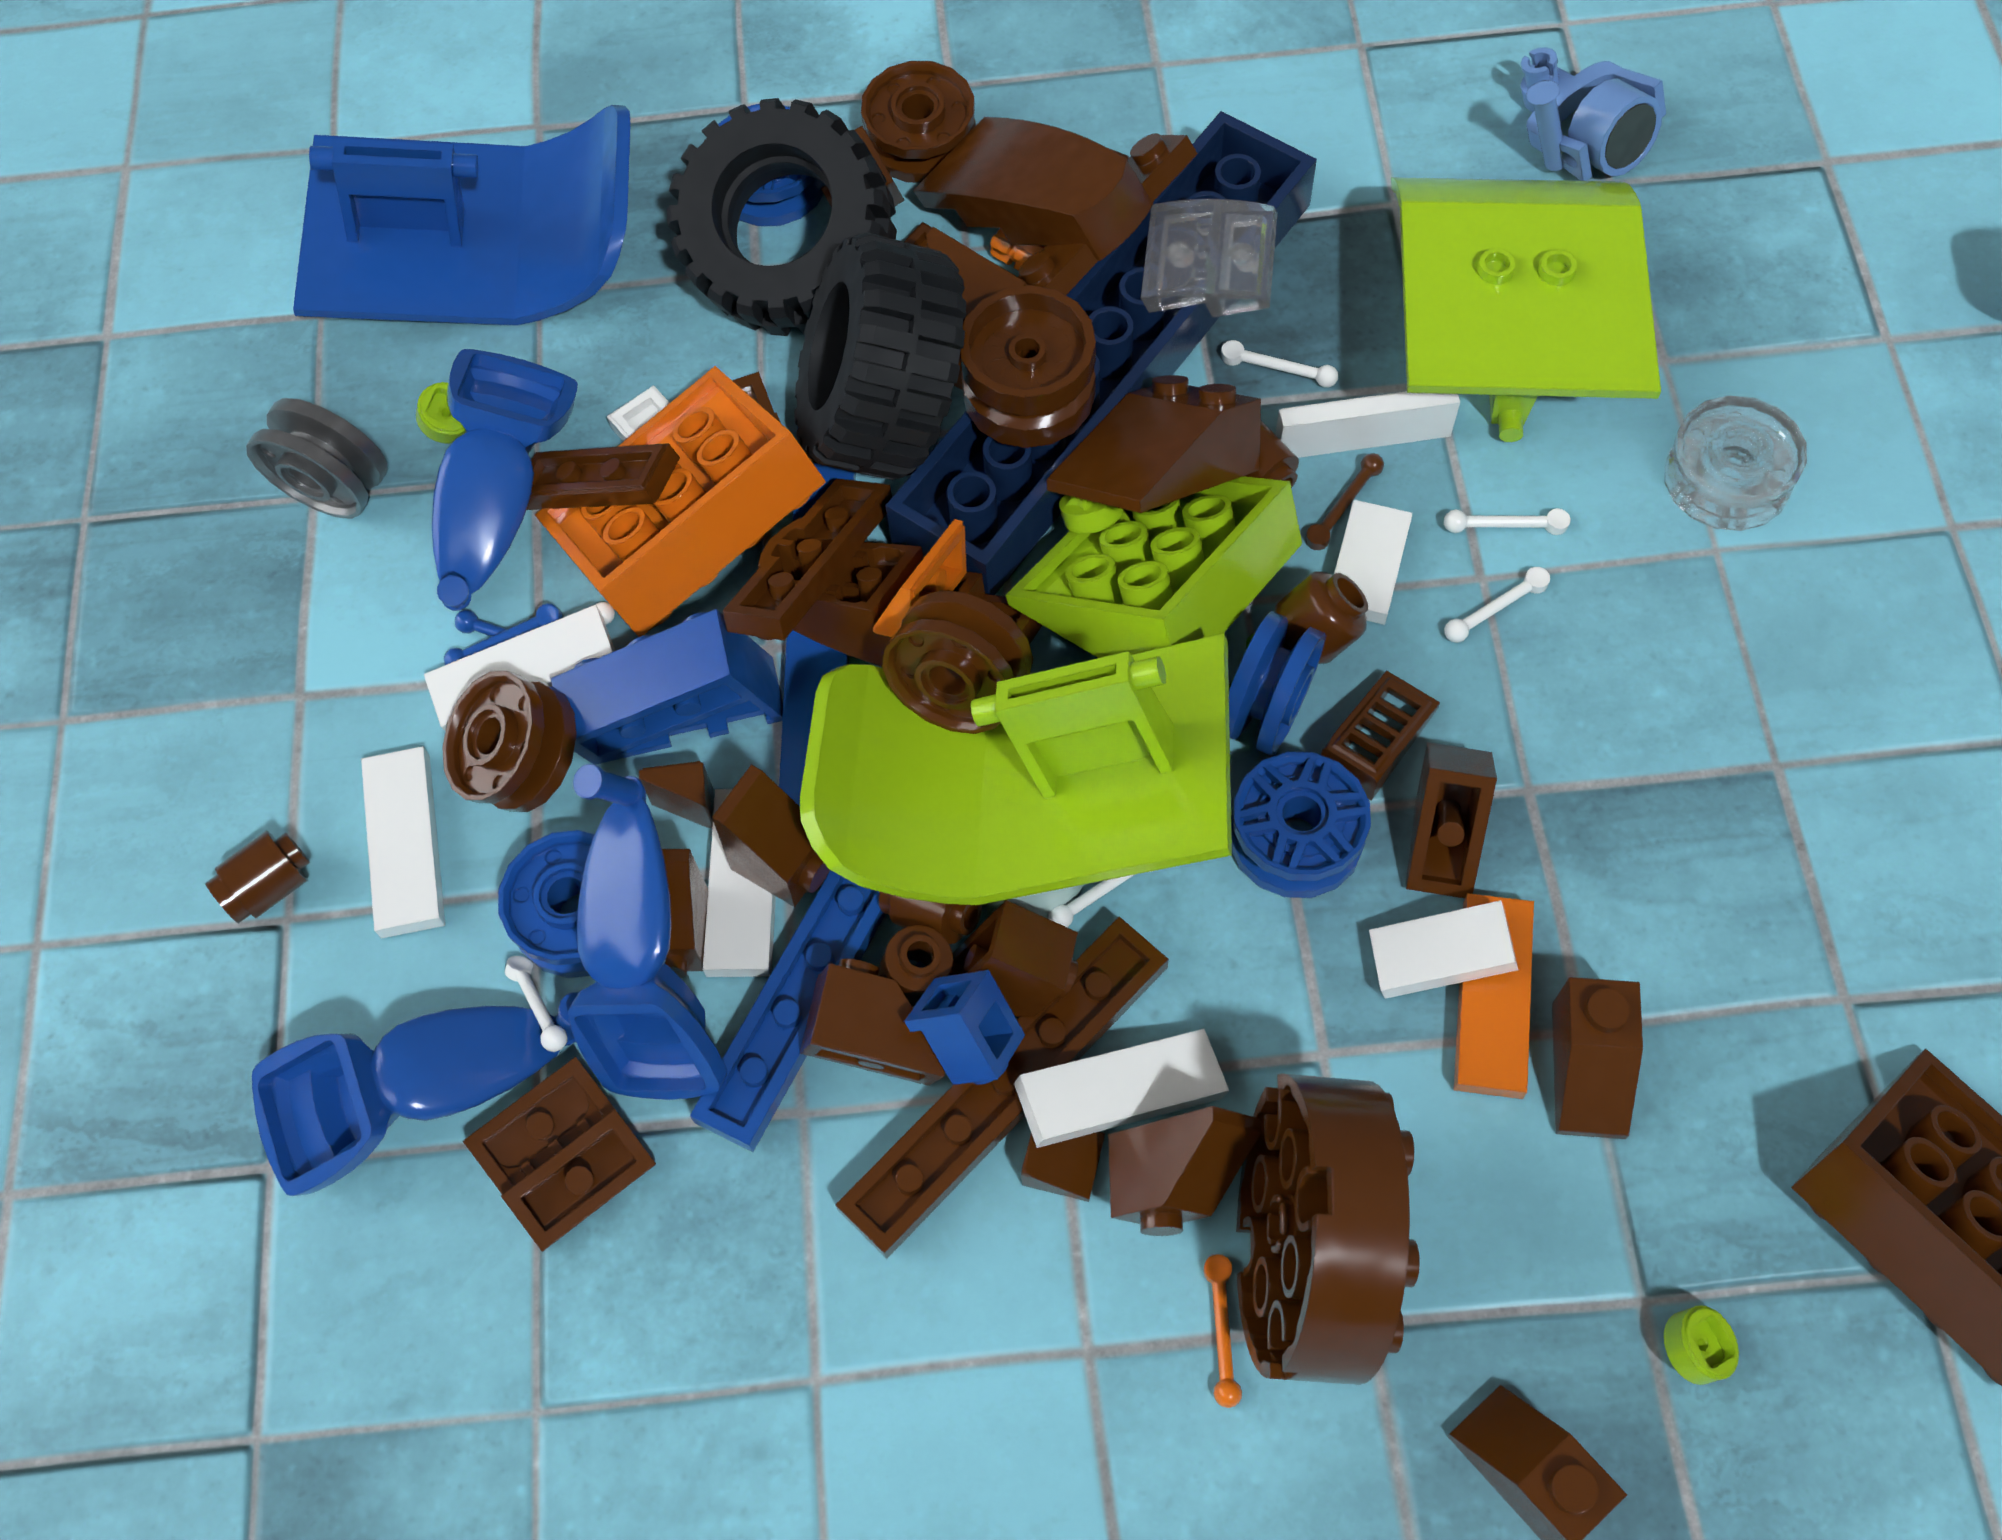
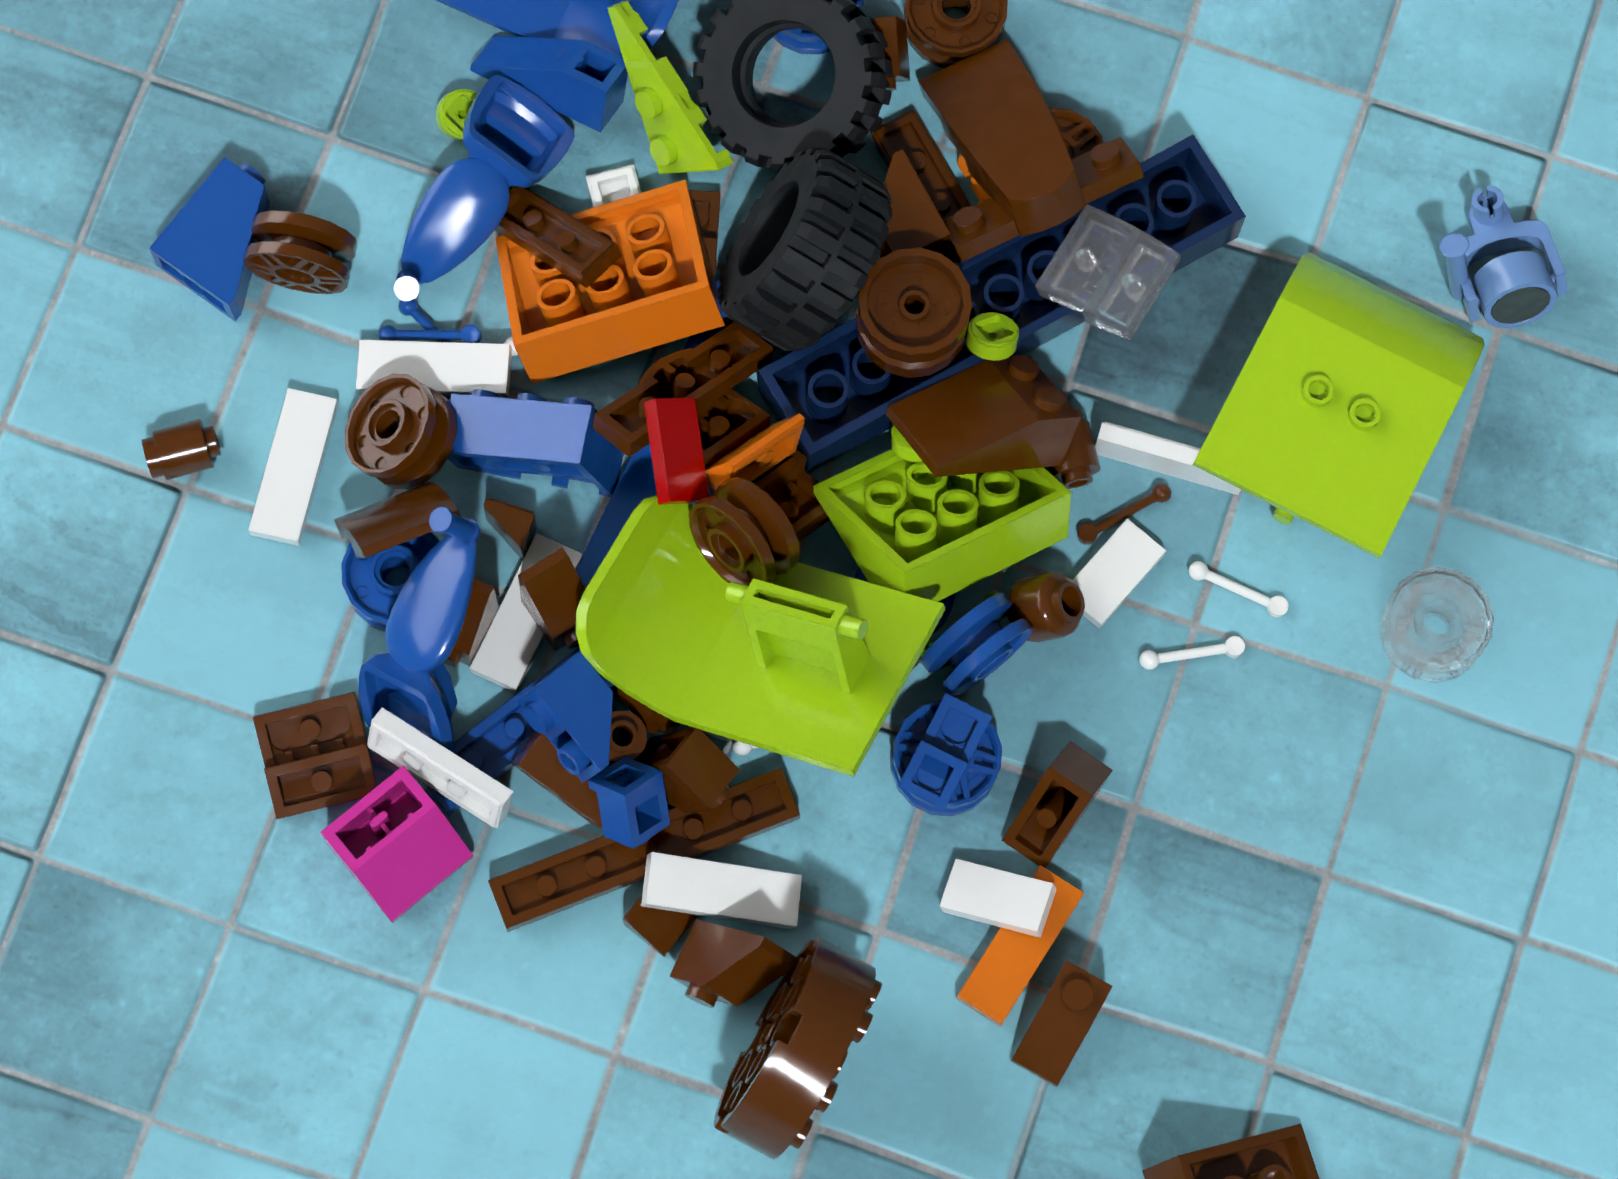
camera: 15 degrees right, 10 degrees up
(216, 638) = (210, 237): none -> blue slope
(315, 604) = (300, 252): none -> reddish brown wheel
(317, 458) = (346, 123): flat silver wheel -> none
(333, 1098) = (174, 651): blue piece -> none
(520, 969) = (339, 607): white hinge -> none
(534, 834) = (393, 519): none -> reddish brown slope
(547, 324) = (564, 73): none -> blue slope
(664, 306) = (663, 102): none -> lime wing
(702, 1211) = (397, 844): none -> dark pink slope
(716, 1093) = (439, 768): none -> white tile
(834, 608) = (676, 450): none -> red tile
(852, 950) = (574, 714): none -> blue slope
(1123, 362) = (992, 336): none -> lime tile
(1217, 1272) = (727, 1044): orange hinge -> none
(1234, 353) = (1106, 343): white hinge -> none
(1301, 807) = (945, 751): none -> blue slope
(1372, 774) = (1009, 732): reddish brown slope -> none

